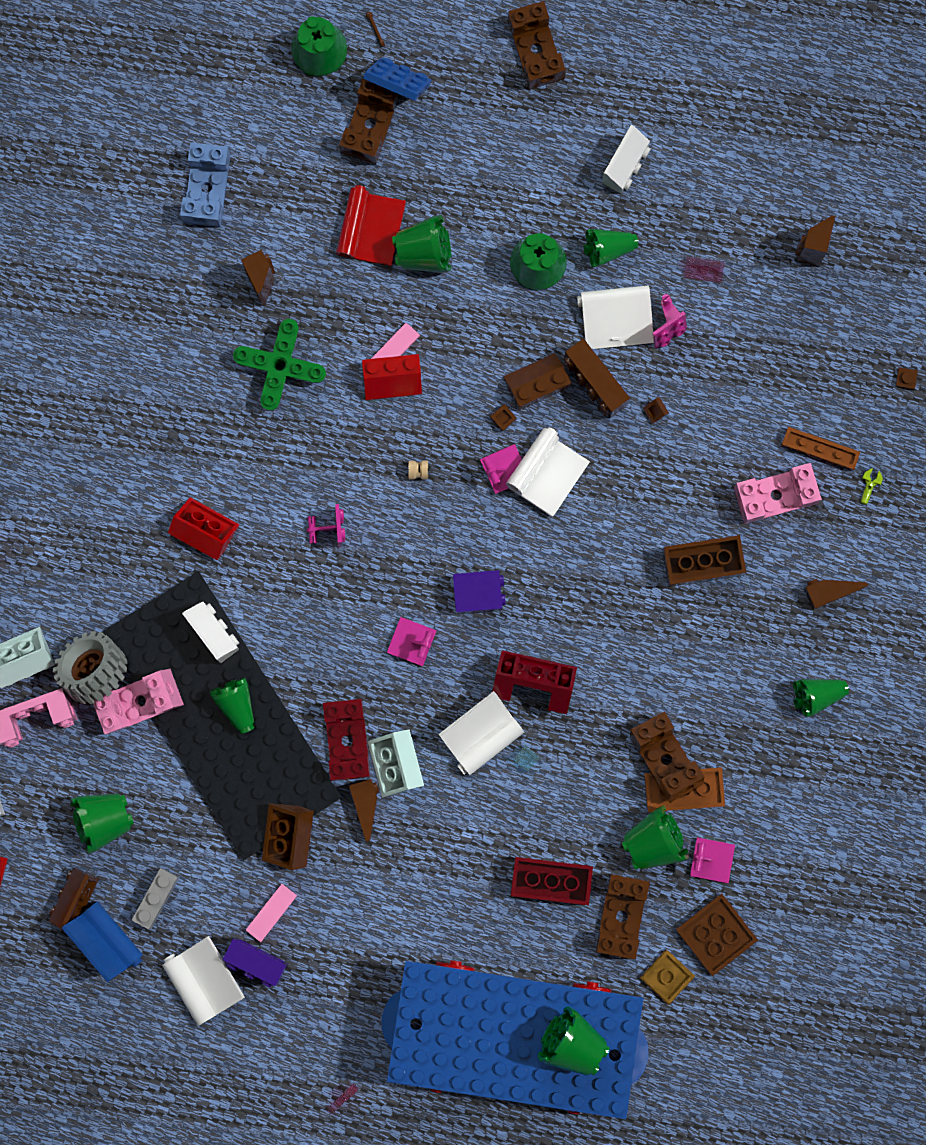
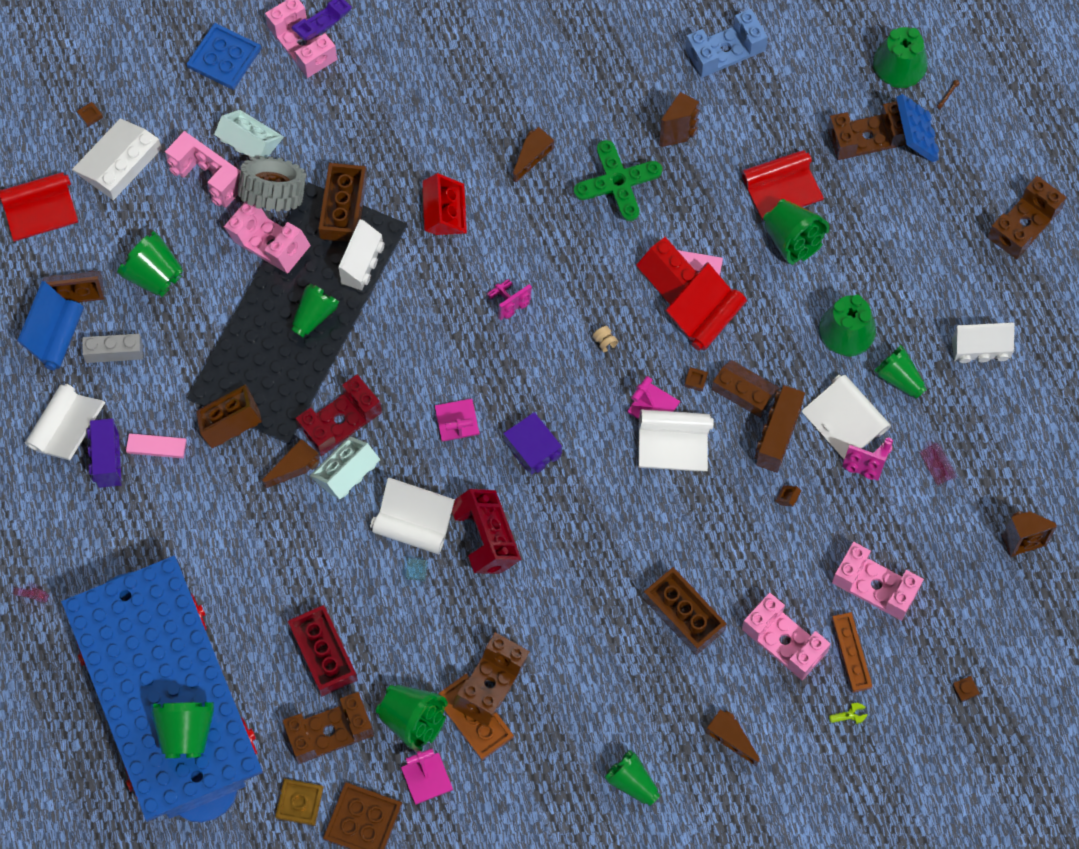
camera: 55 degrees right, 15 degrees down
(148, 615) = (342, 201): none -> reddish brown brick
(198, 416) = (534, 149): none -> reddish brown slope
(446, 367) = (705, 307): none -> red door
(795, 380) = (858, 572): none -> bright pink plate

